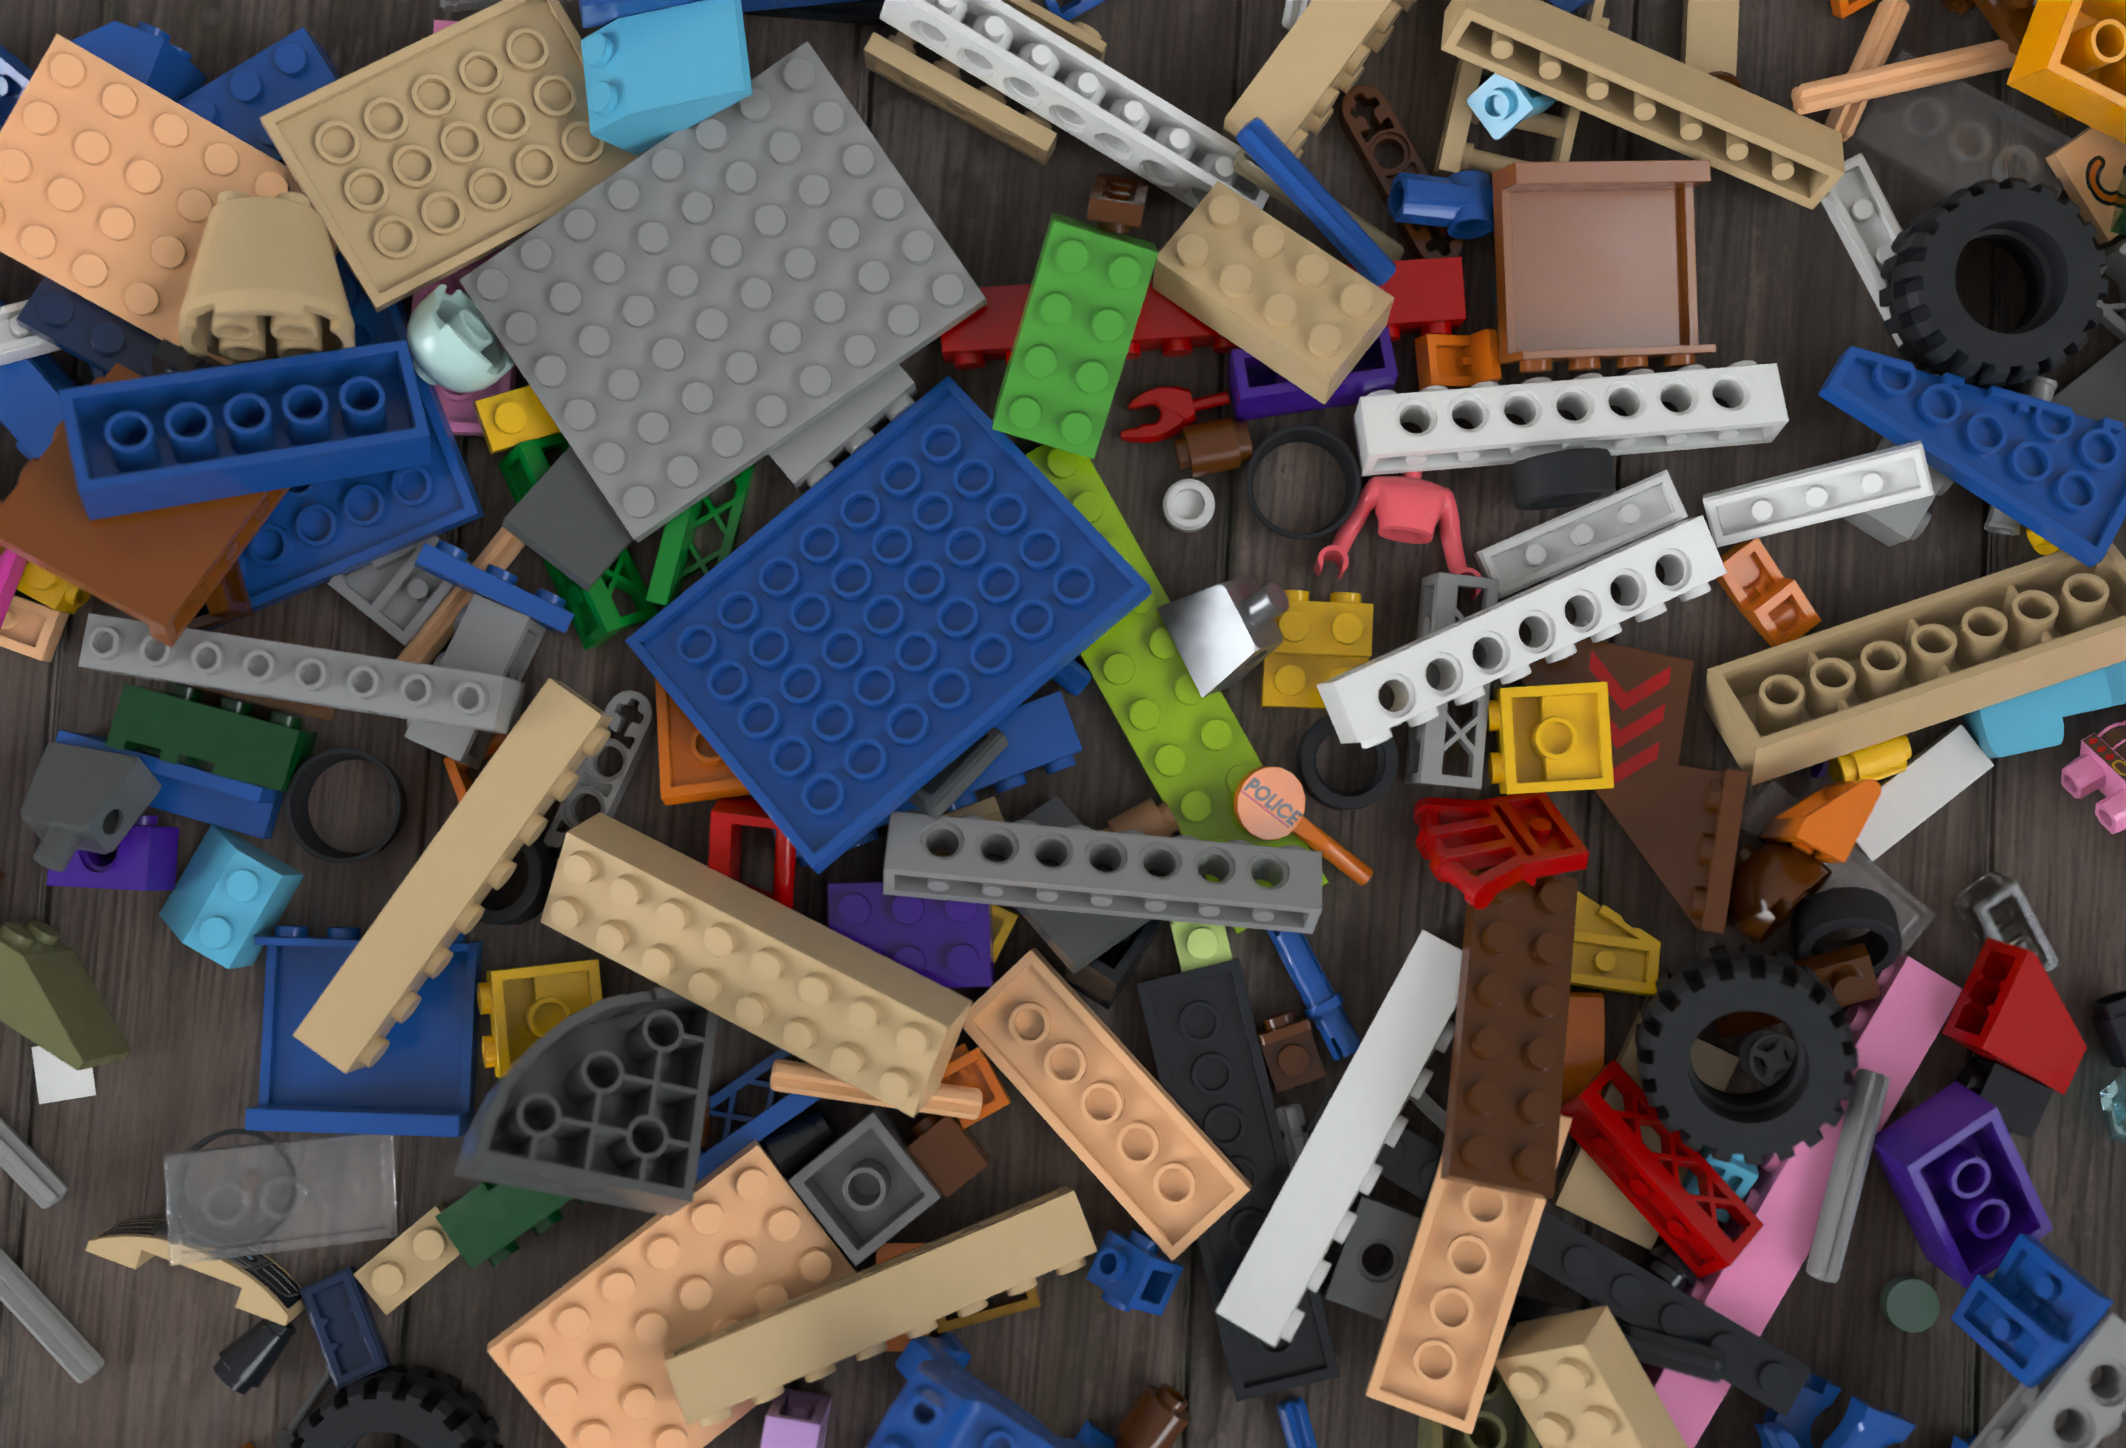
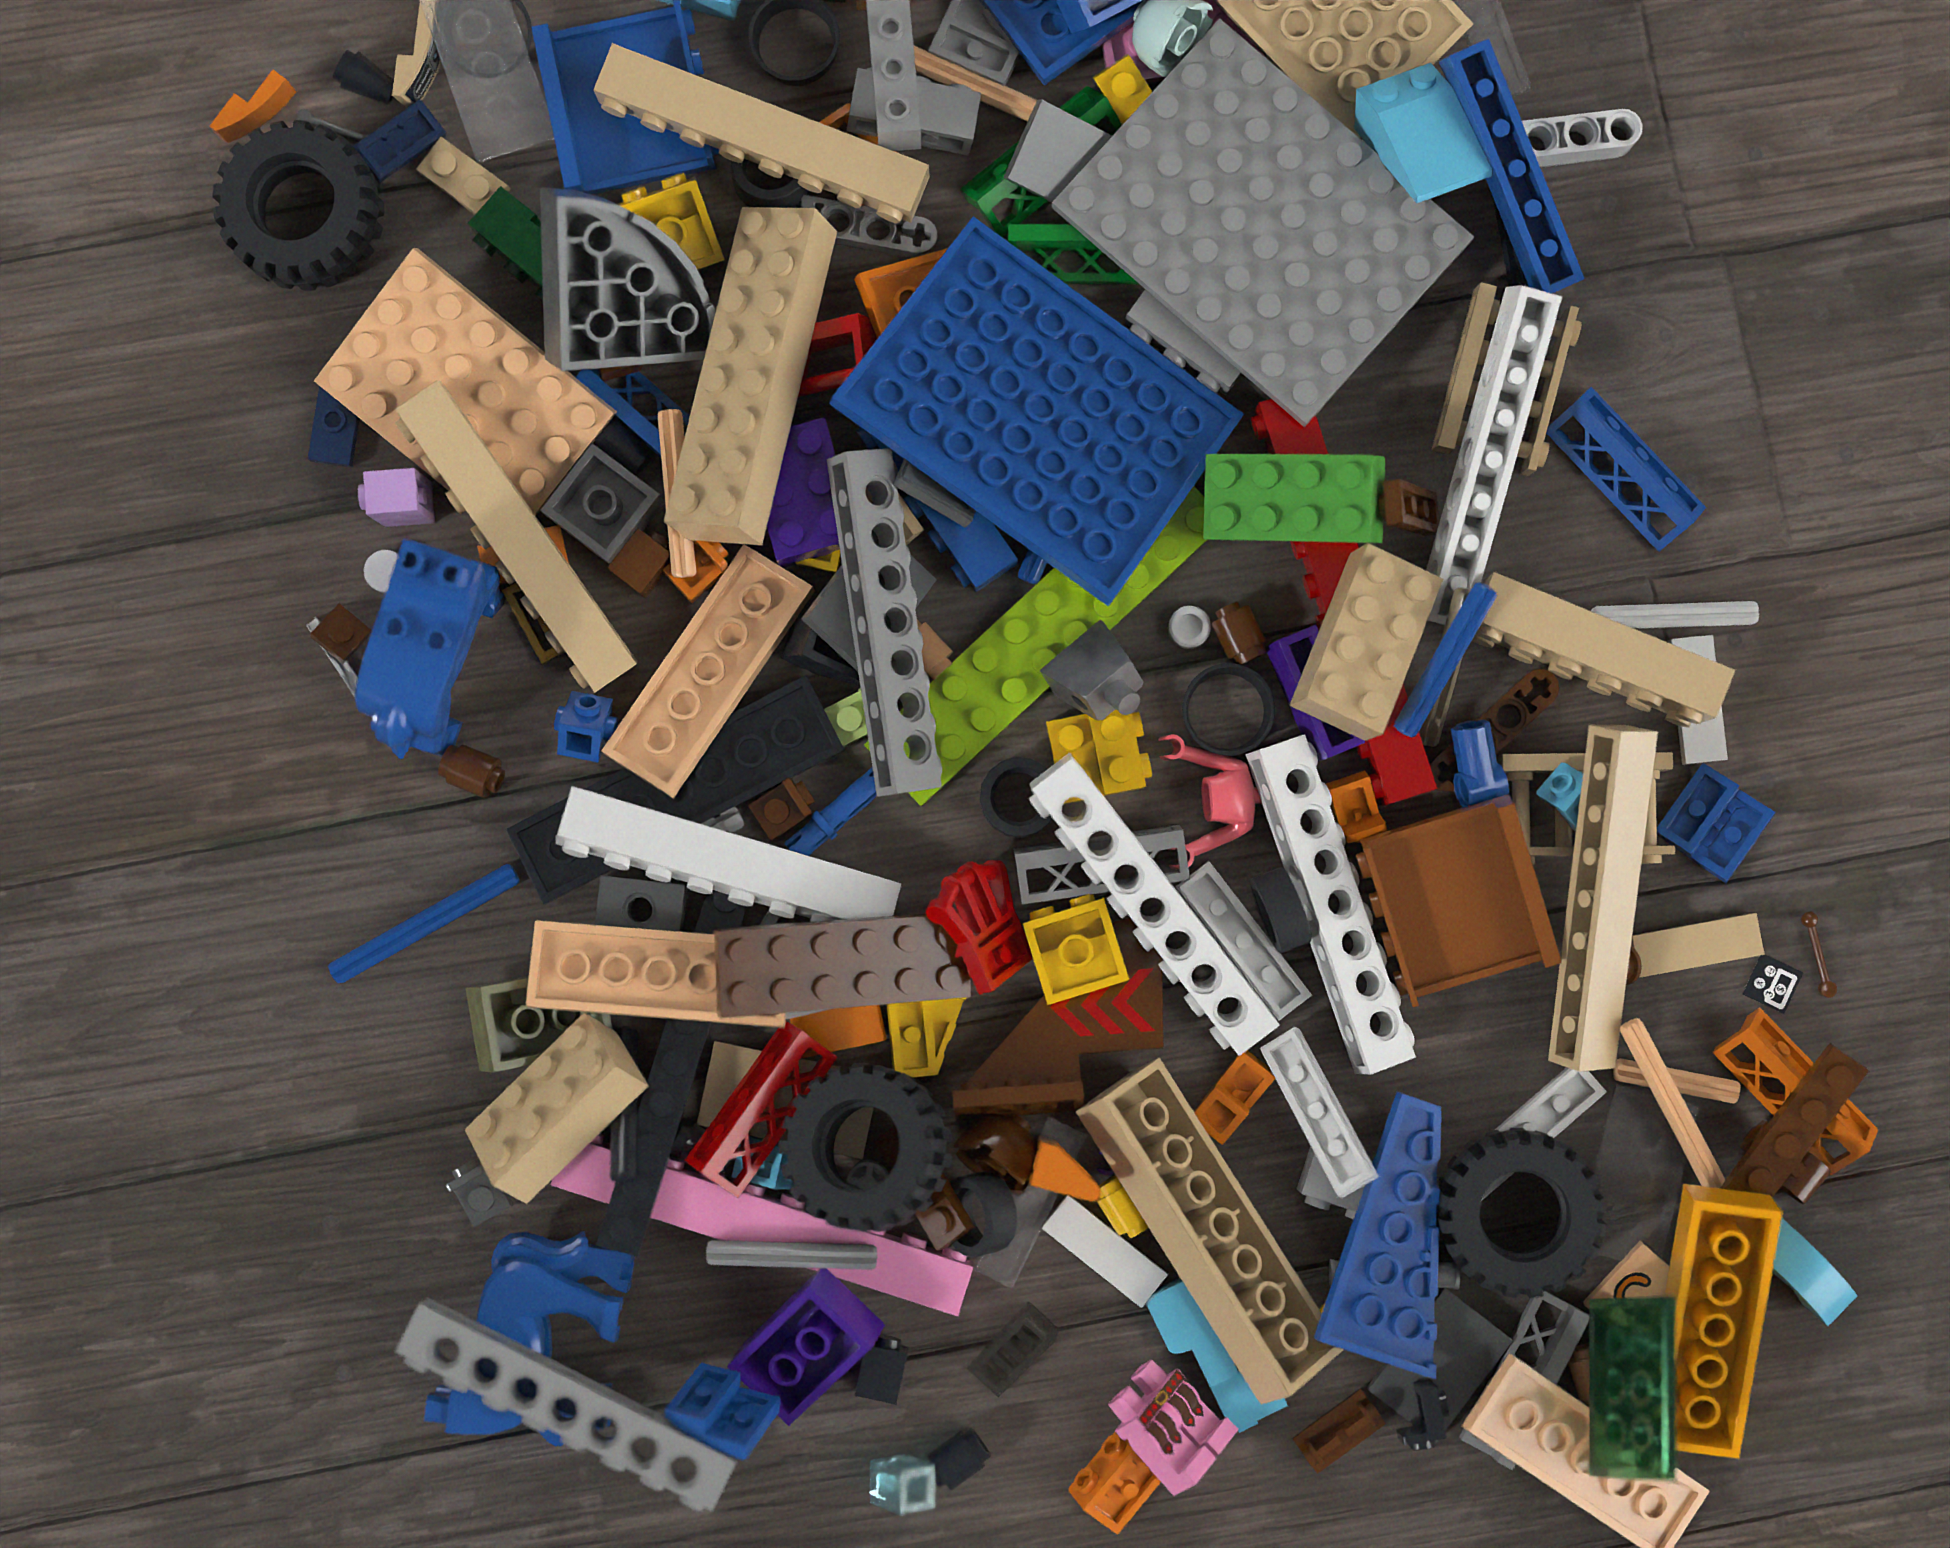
camera: 75 degrees right, 0 degrees up
(494, 584) = (991, 107): blue plate -> none
(1175, 409) = (1261, 598): red hand -> none
(1272, 805) = (968, 744): orange piece -> none
(1909, 1303) = (704, 1337): sand green tile -> none
(2016, 1017) = (944, 1362): red slope -> none

